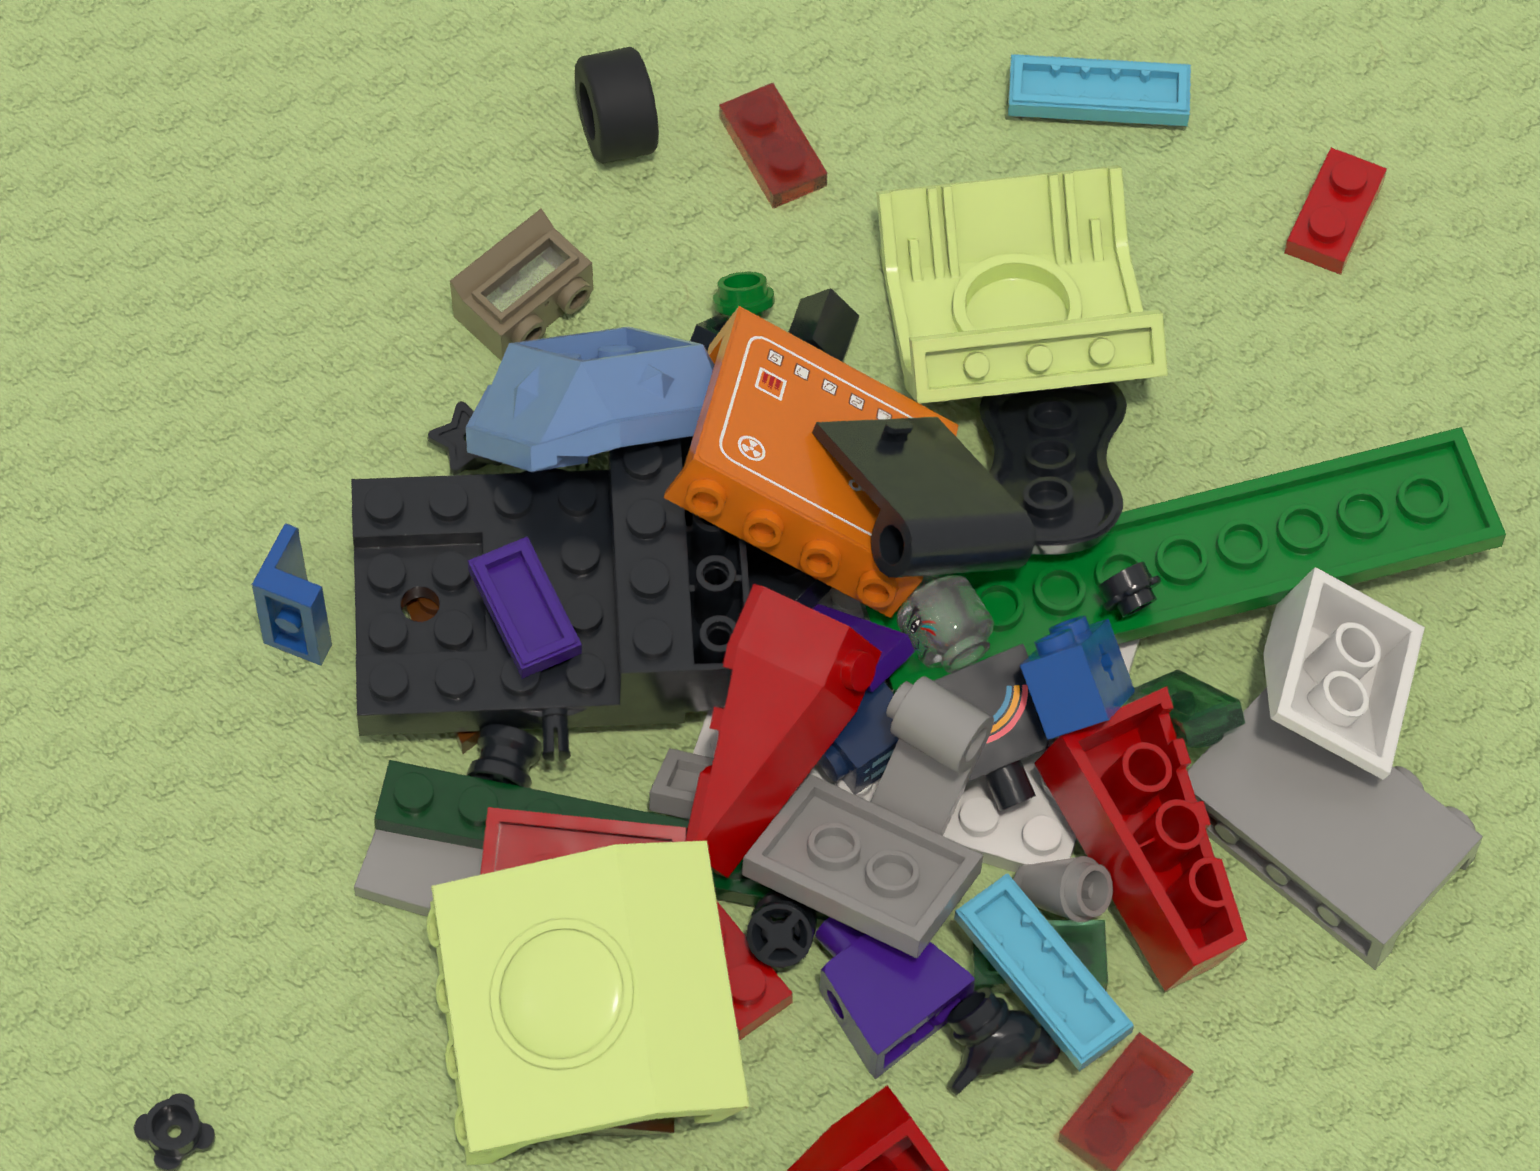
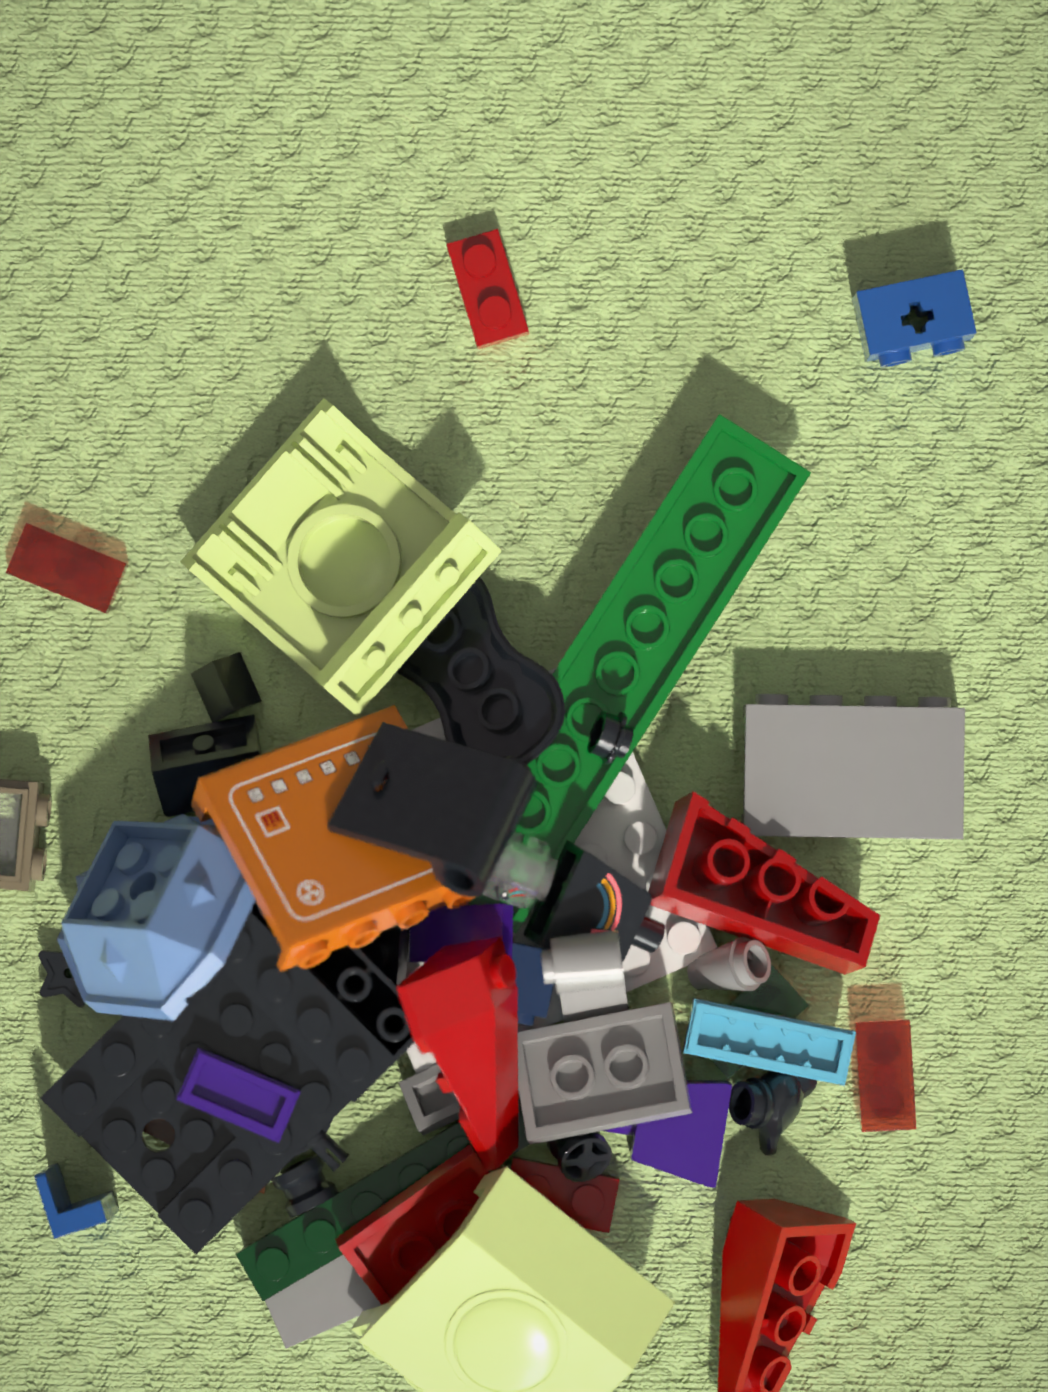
camera: 35 degrees left, 25 degrees up
(743, 290) = (155, 710): green plate -> none
(1077, 676) = (636, 840): blue brick -> none
(1099, 90) = (252, 333): medium azure plate -> none
(1199, 710) = (711, 774): clear green plate -> none
(1341, 670) = (791, 679): white slope -> none

